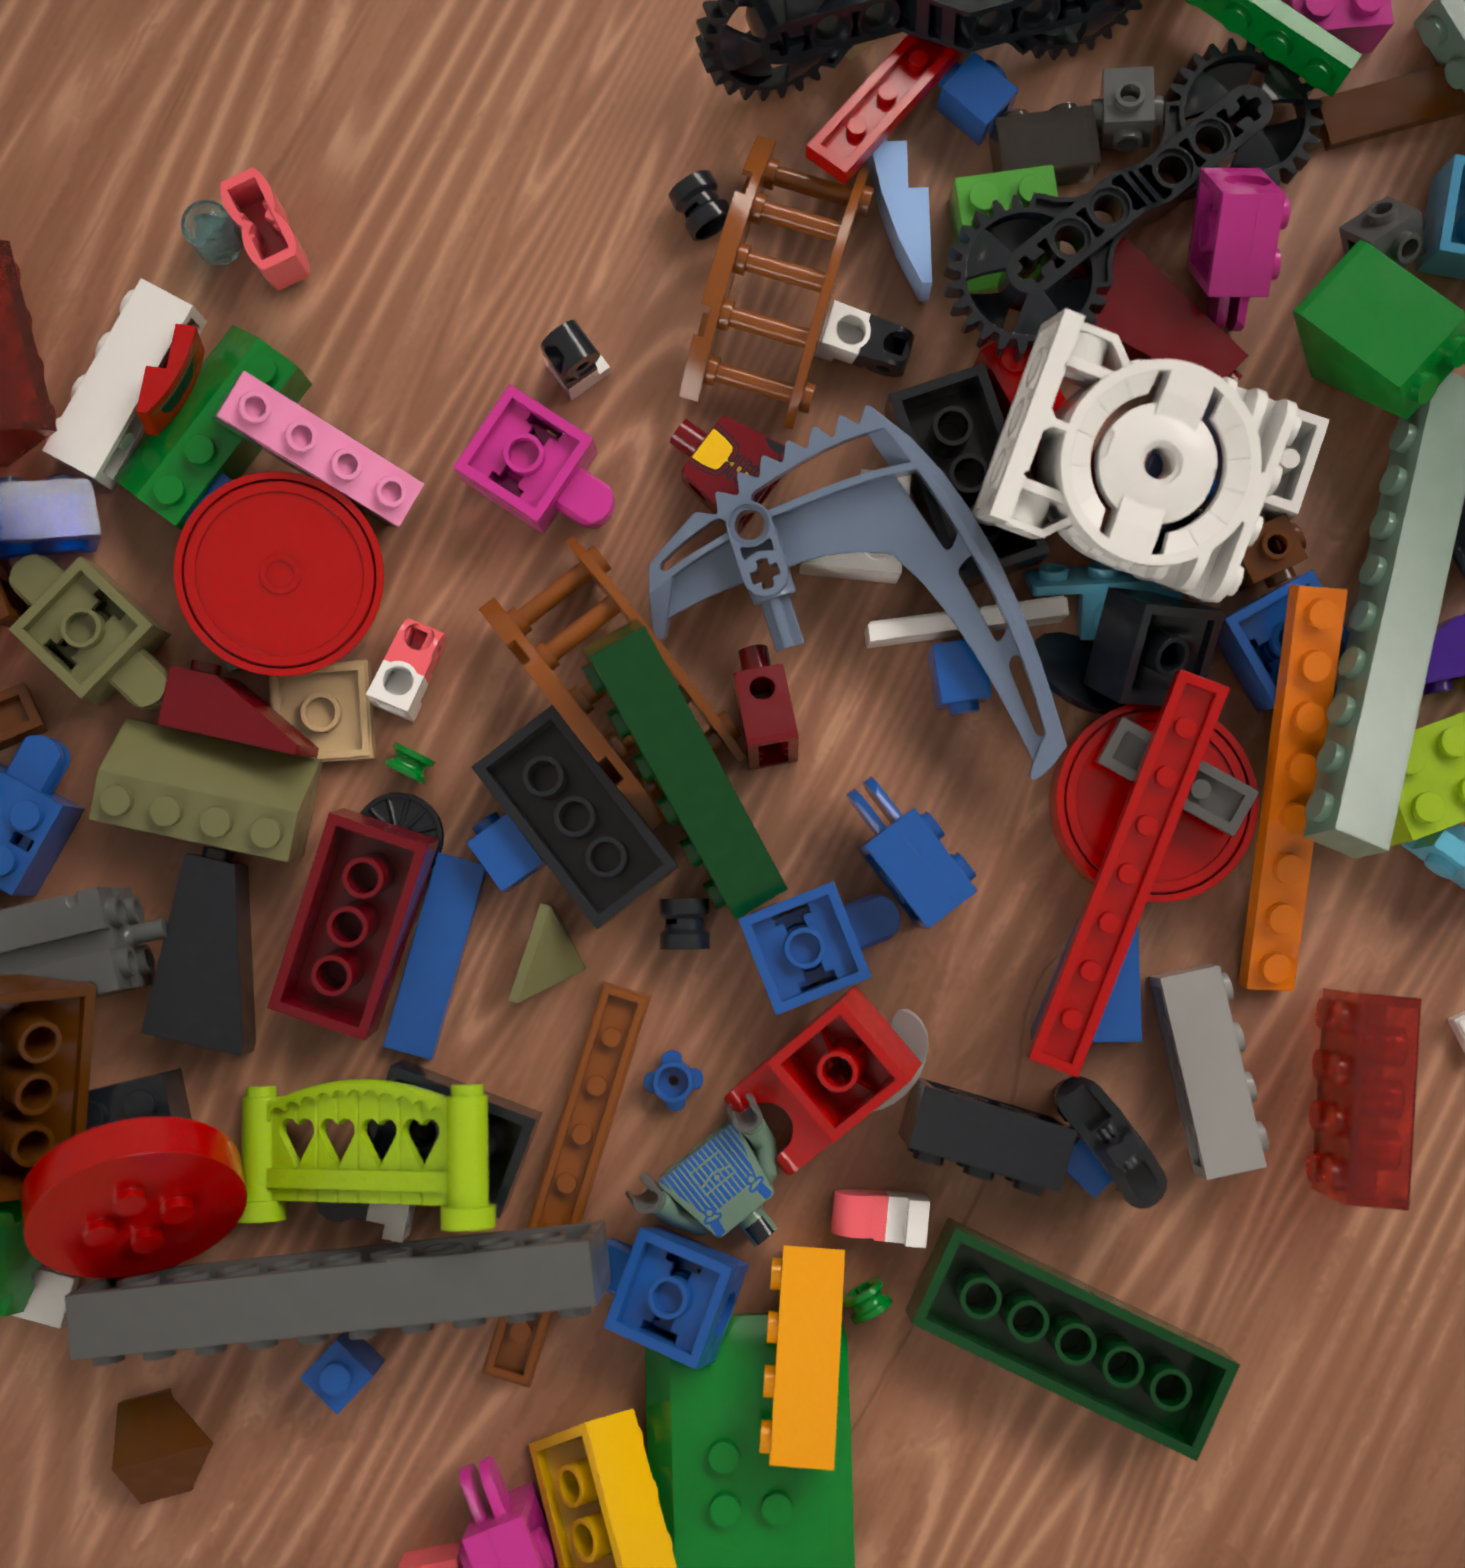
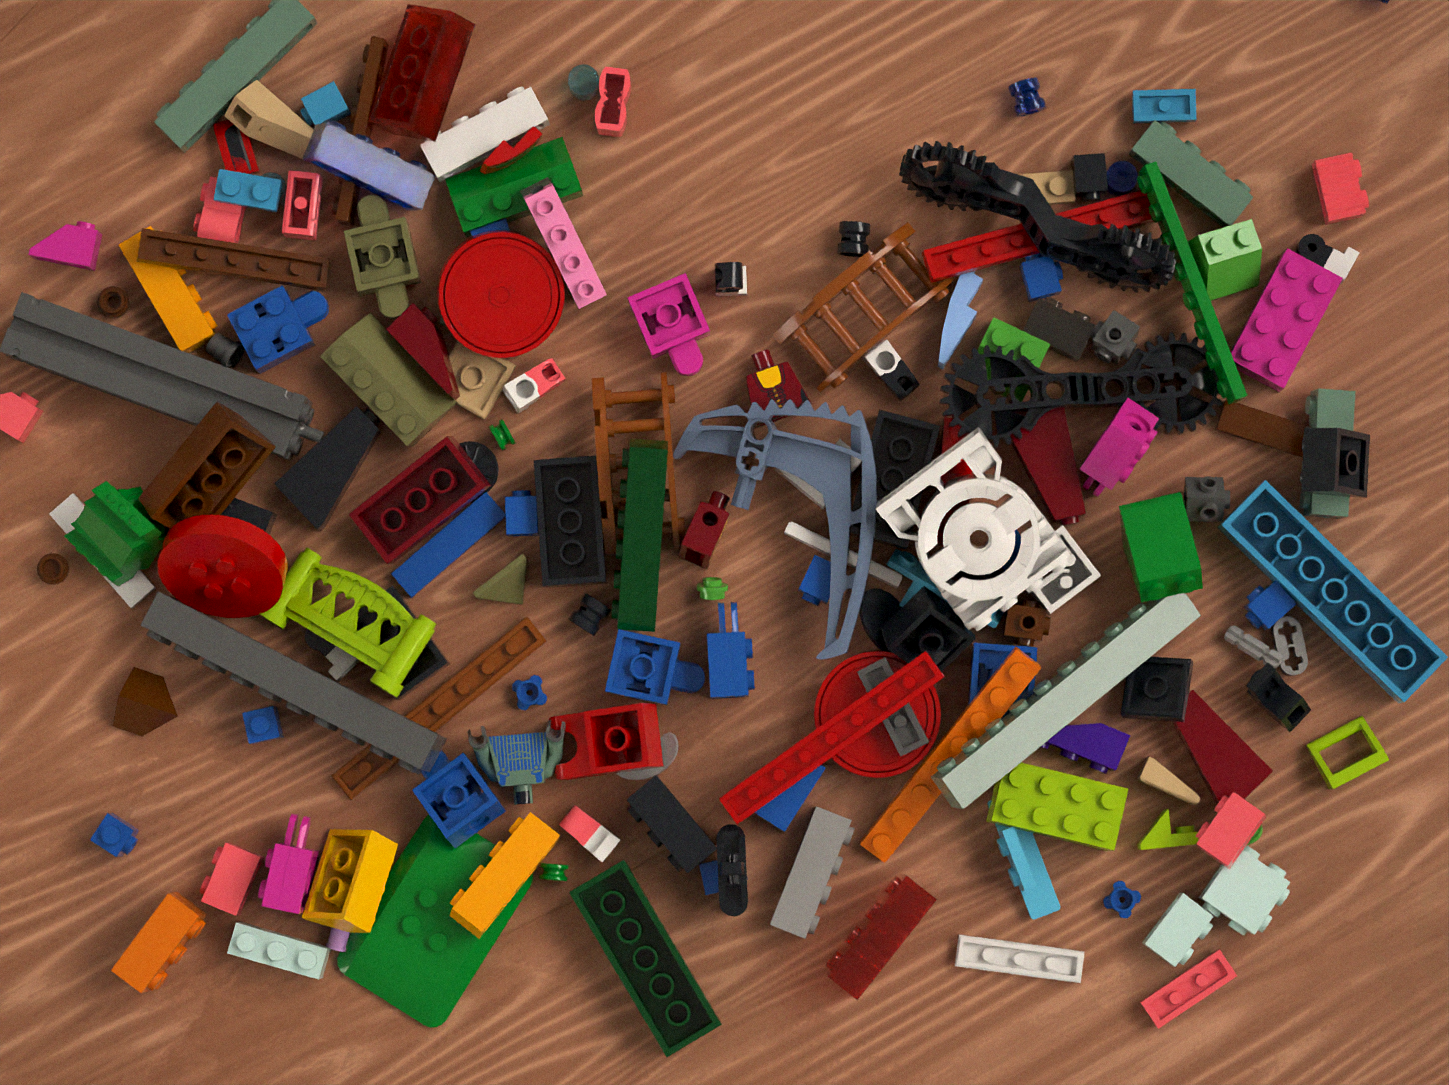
camera: 40 degrees right, 0 degrees up
(823, 781) = (712, 588): none -> bright green plate

